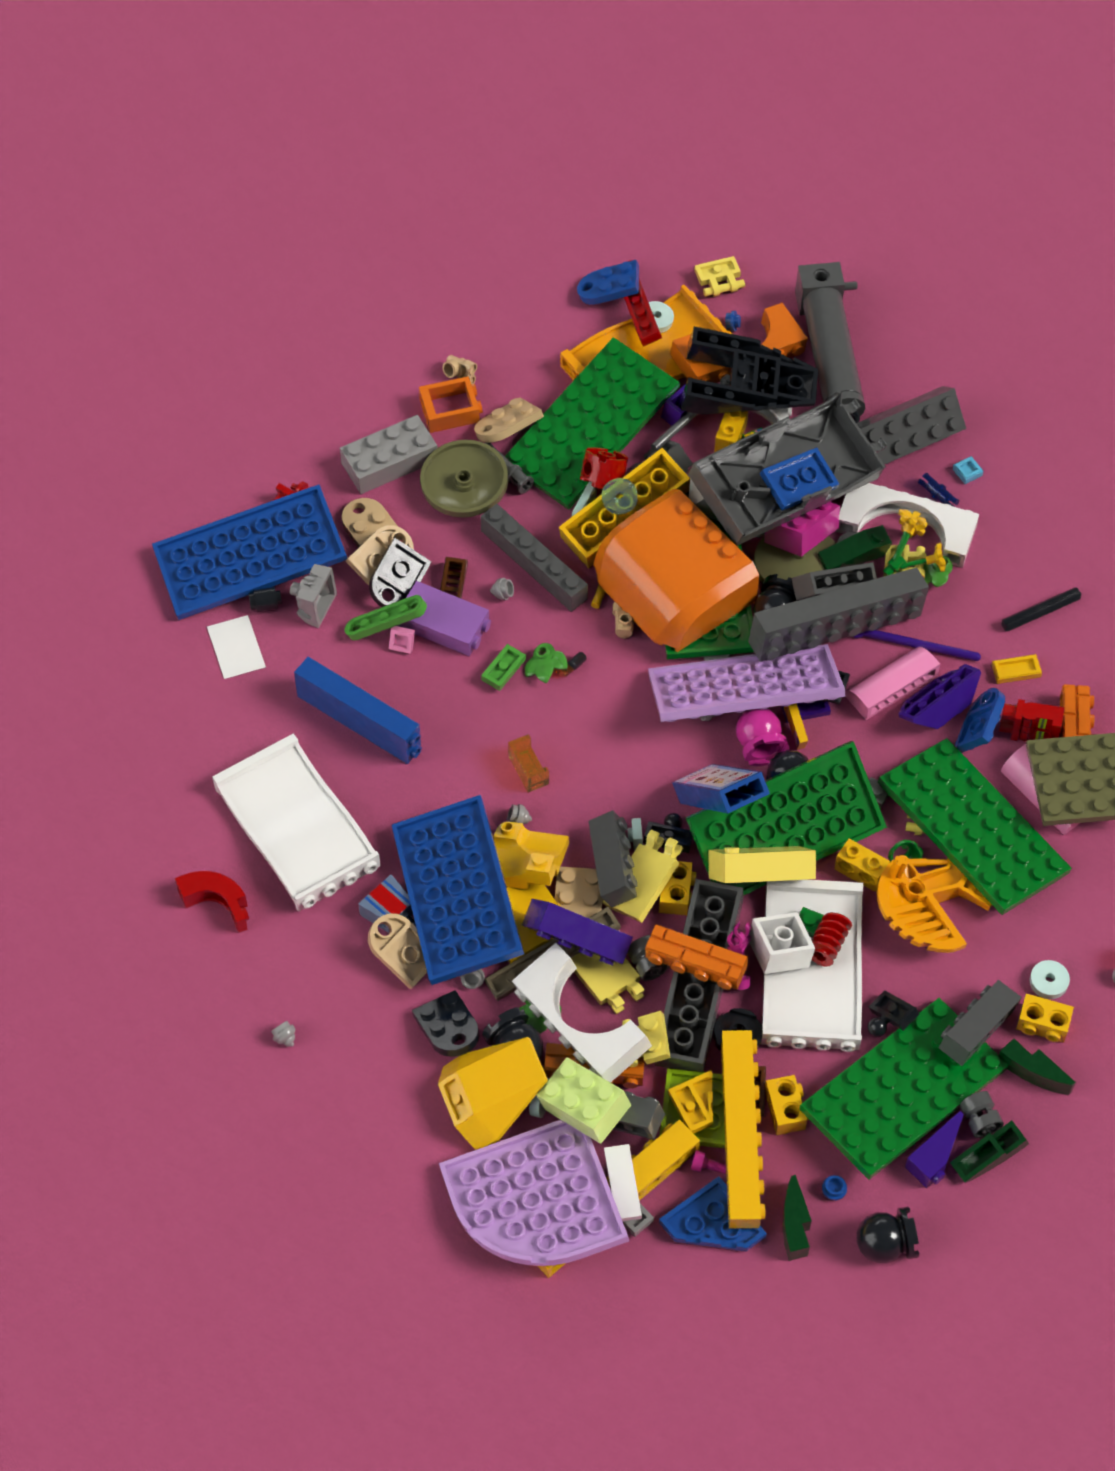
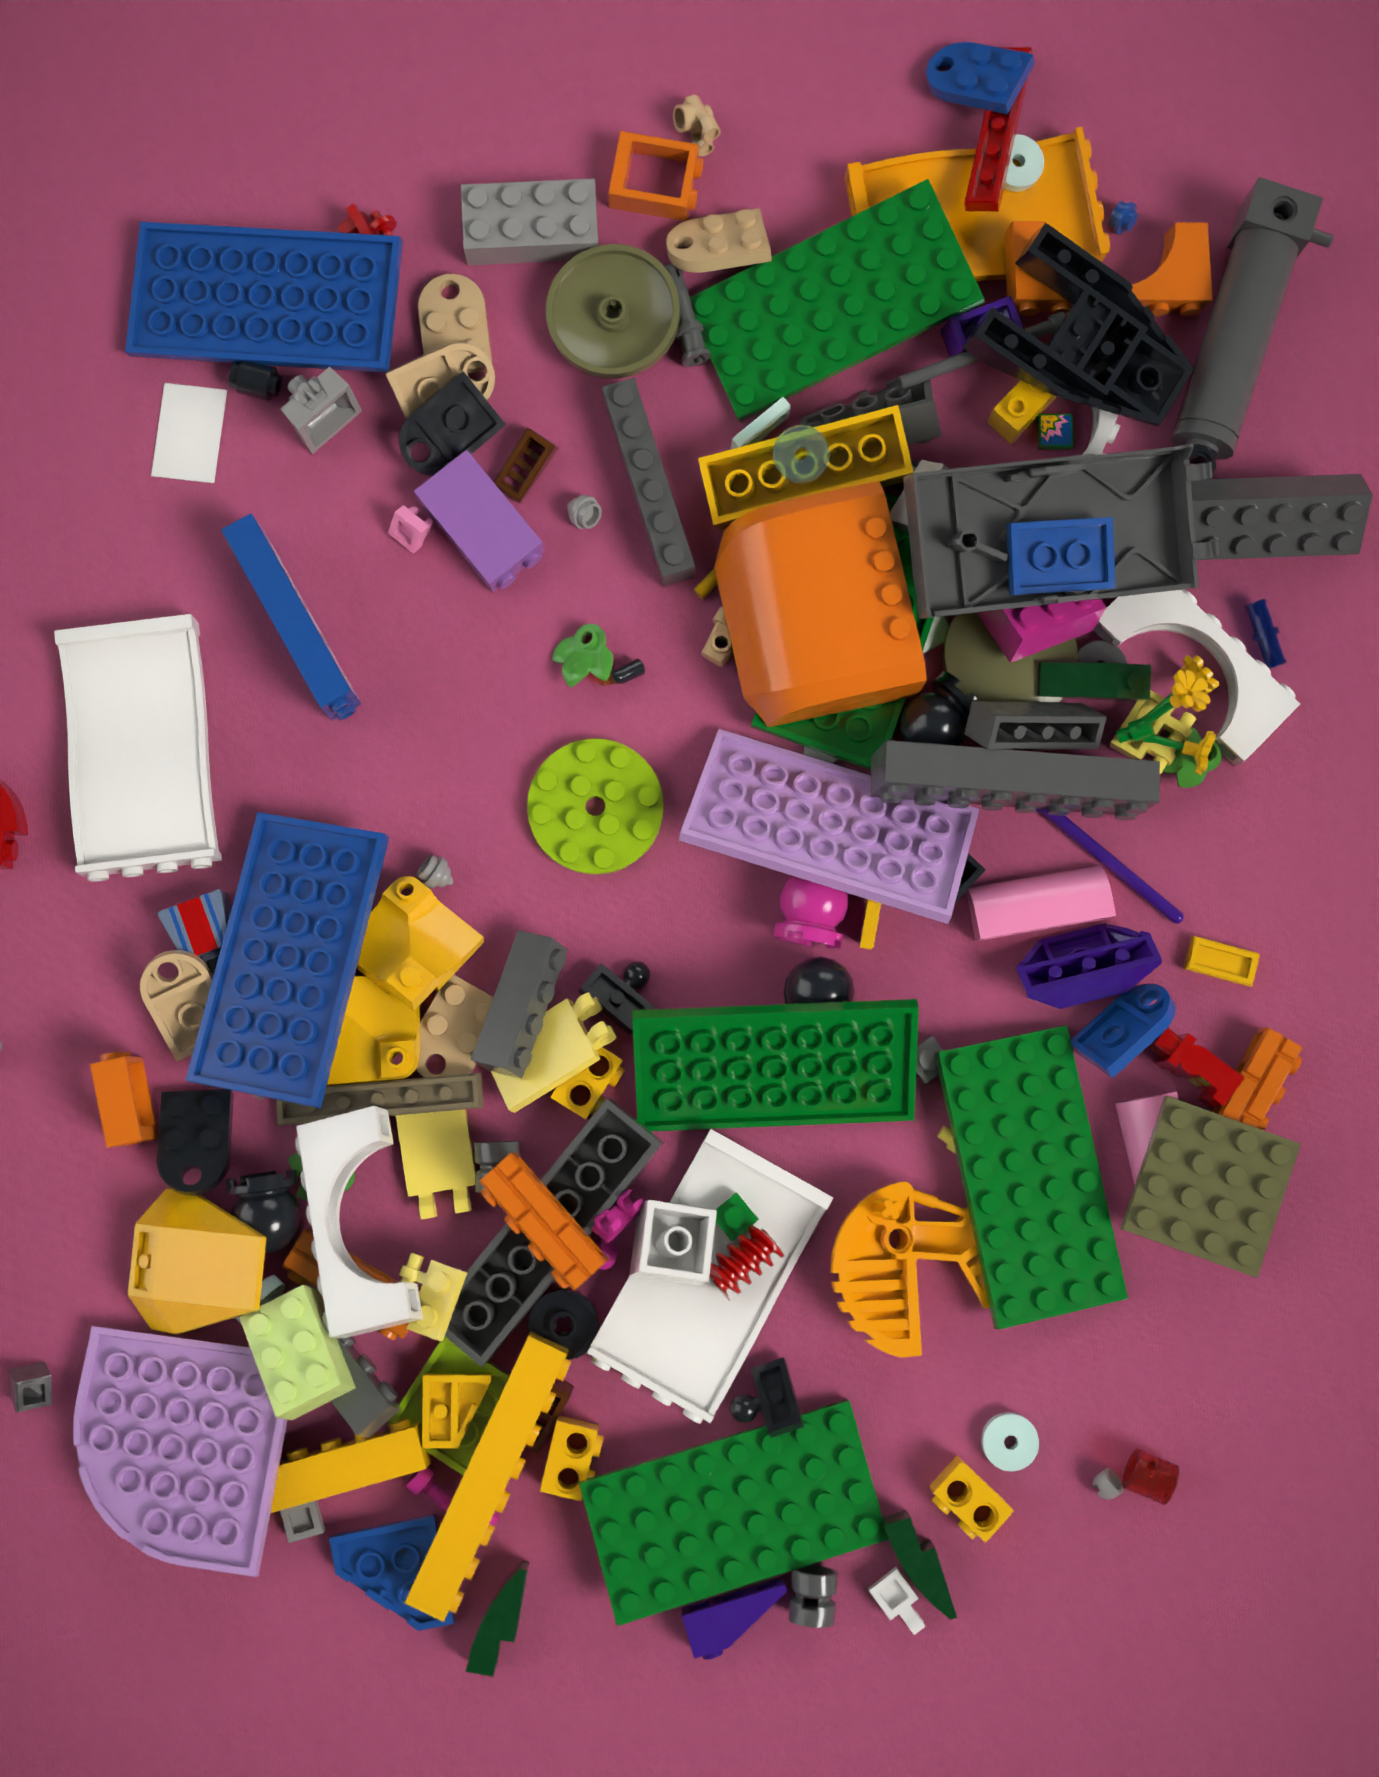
camera: 20 degrees right, 25 degrees up
(385, 617) = (395, 492): bright green plate -> none
(393, 1017) = (124, 1099): none -> orange window
(416, 1220) = (30, 1386): none -> flat silver slope
(503, 667) = (525, 635): bright green plate -> none
(527, 764) = (484, 801): clear yellow panel -> none
(577, 931) = (408, 1103): dark purple wedge -> none
(600, 763) = (590, 771): none -> lime plate
(602, 466) = (807, 390): red brick -> none
(623, 1181) = (297, 1481): white tile -> none
(635, 832) = (574, 974): light aqua plate -> none
(719, 271) = (1144, 122): light yellow plate -> none
(721, 788) = (699, 995): blue brick -> none
(761, 864) = (704, 1120): light yellow brick -> none
(834, 1188) = (574, 1597): blue plate -> none
(860, 864) = (849, 1164): yellow brick -> none
(886, 1236) = (597, 1709): black tile -> none
(913, 851) = (928, 1175): green piece -> none
(968, 470) = (1327, 615): medium azure tile -> none
(979, 1022) = (877, 1474): dark grey brick -> none
(989, 1152) = (797, 1649): dark green slope -> none
(1033, 1094) = (896, 1597): none -> white plate
(1041, 609) = (1307, 886): black axle -> none

